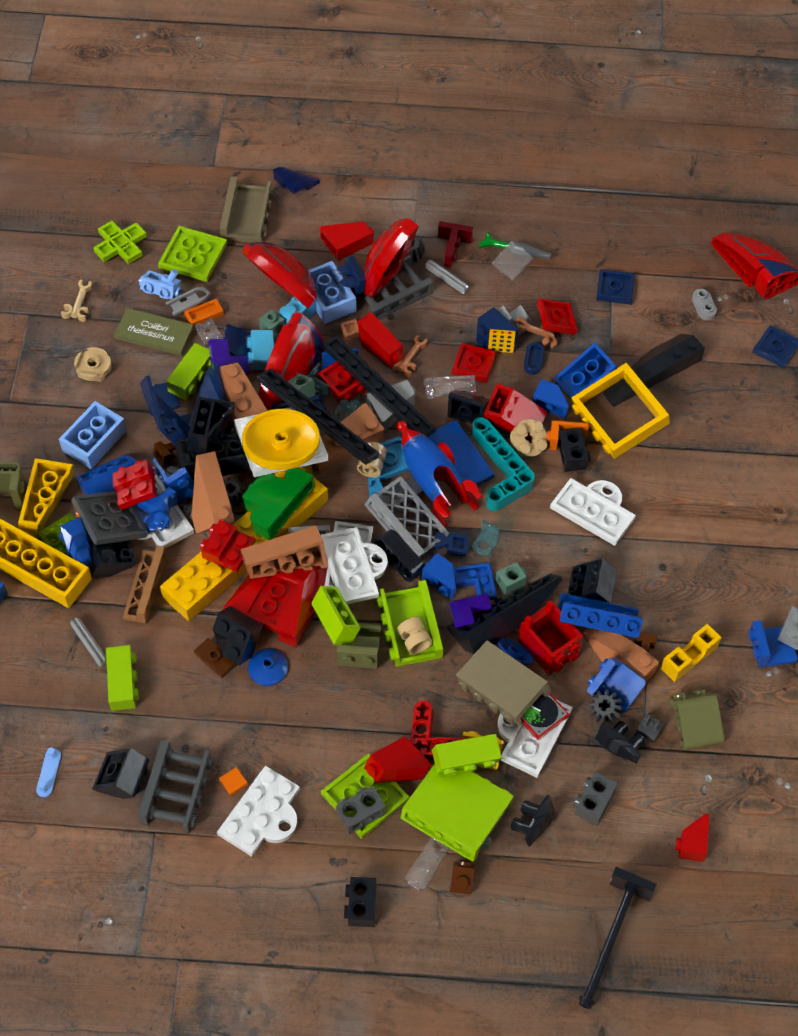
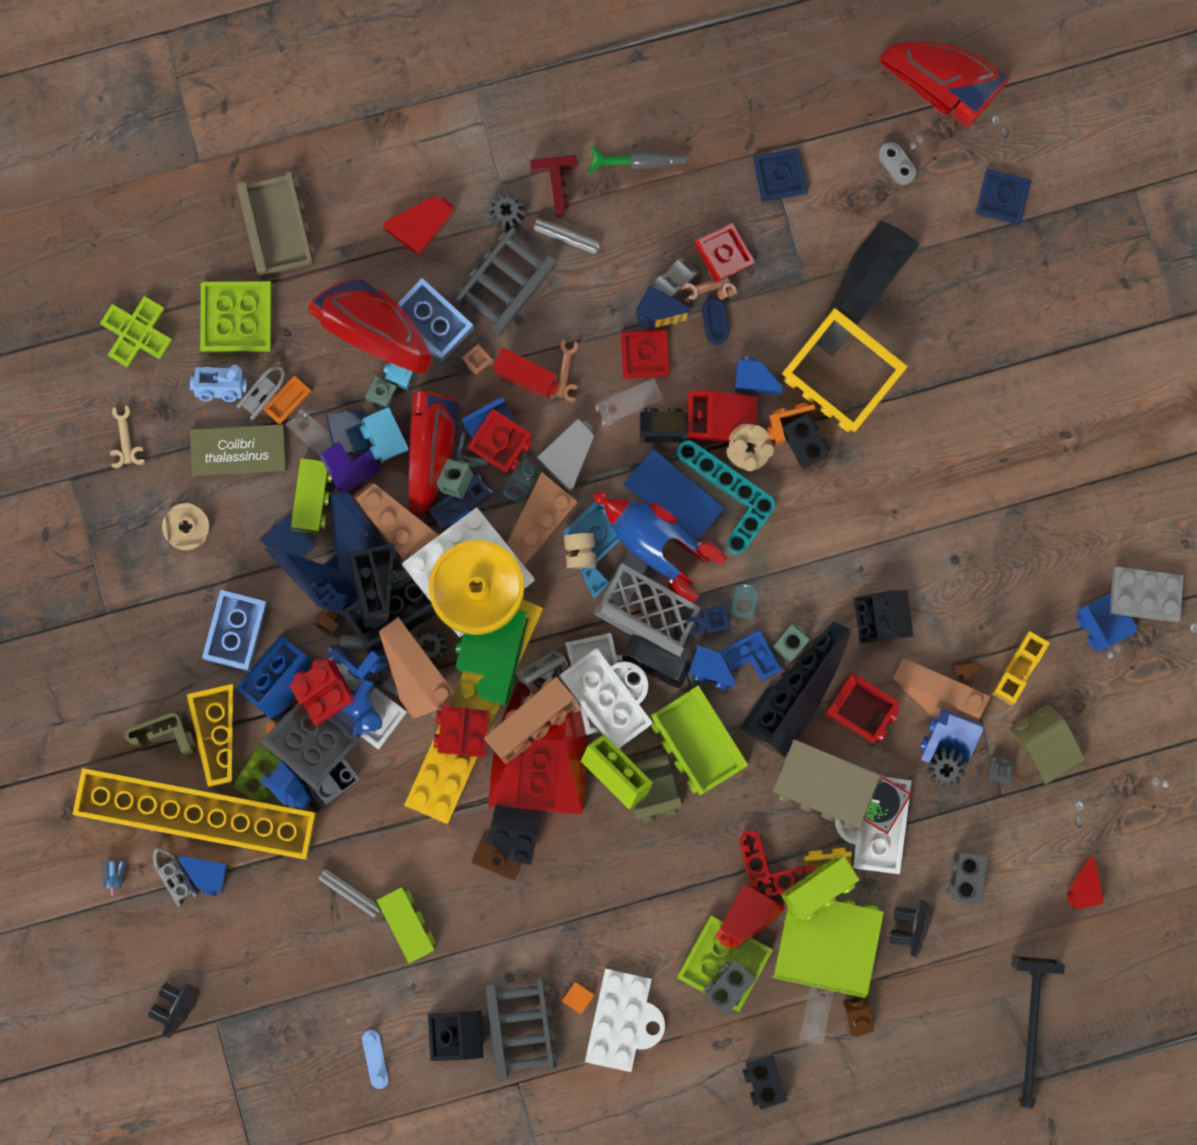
camera: 25 degrees left, 25 degrees up
(149, 587) = (391, 814): medium nougat fence -> none
(270, 674) = (559, 861): blue dish -> none
(293, 180) = (315, 150): clear blue slope -> none
(323, 420) = (498, 525): black tile -> none
(355, 277) = (463, 299): dark blue tile -> none
(377, 386) = (549, 446): black tile -> none
(388, 255) = (494, 267): red panel -> none
(414, 635) = (711, 759): tan wheel -> none
(463, 609) = (752, 701): dark purple tile -> none
(512, 260) = (640, 184): clear piece -> none
(516, 651) = (827, 736): blue dish -> none
(585, 370) = (789, 326): blue slope -> none
(594, 509) = (855, 514): white plate -> none
(599, 615) = (907, 650): blue fence -> none
(616, 743) = (965, 804): black connector -> none

